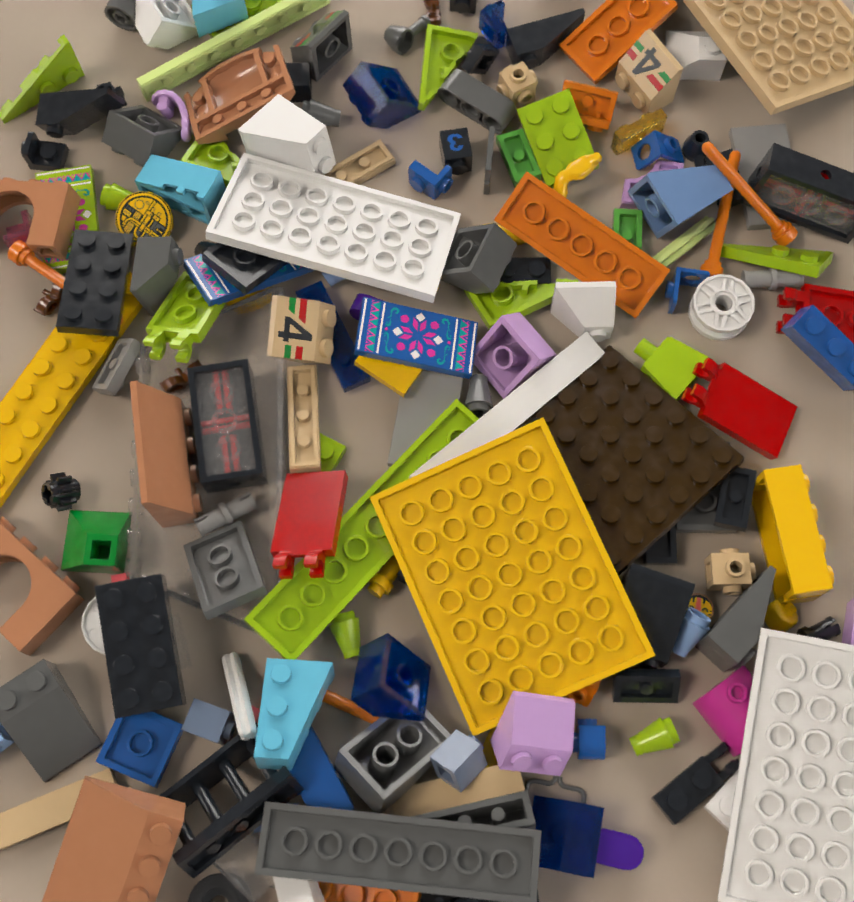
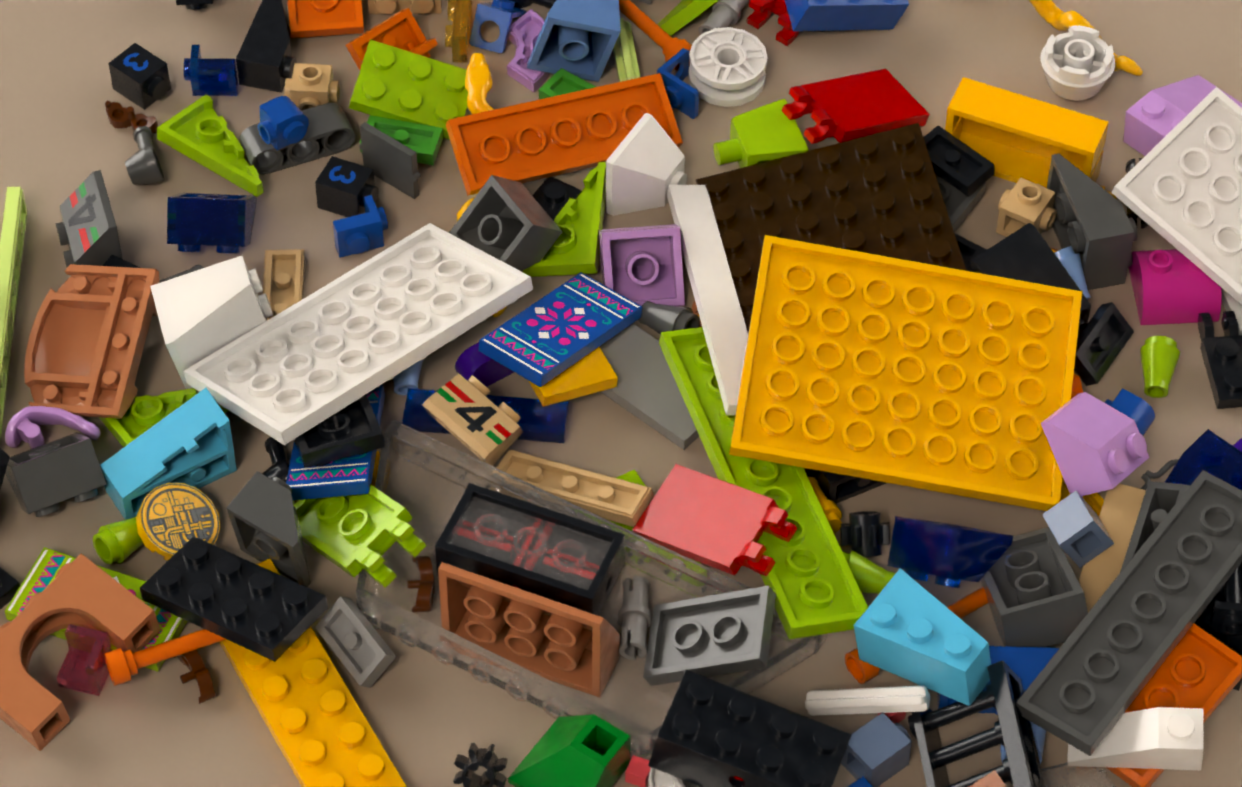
camera: 60 degrees left, 20 degrees down
(377, 618) = (865, 533): none -> black gear
(466, 83) = (282, 122): none -> blue plate
(480, 56) = (239, 104): black bracket -> none

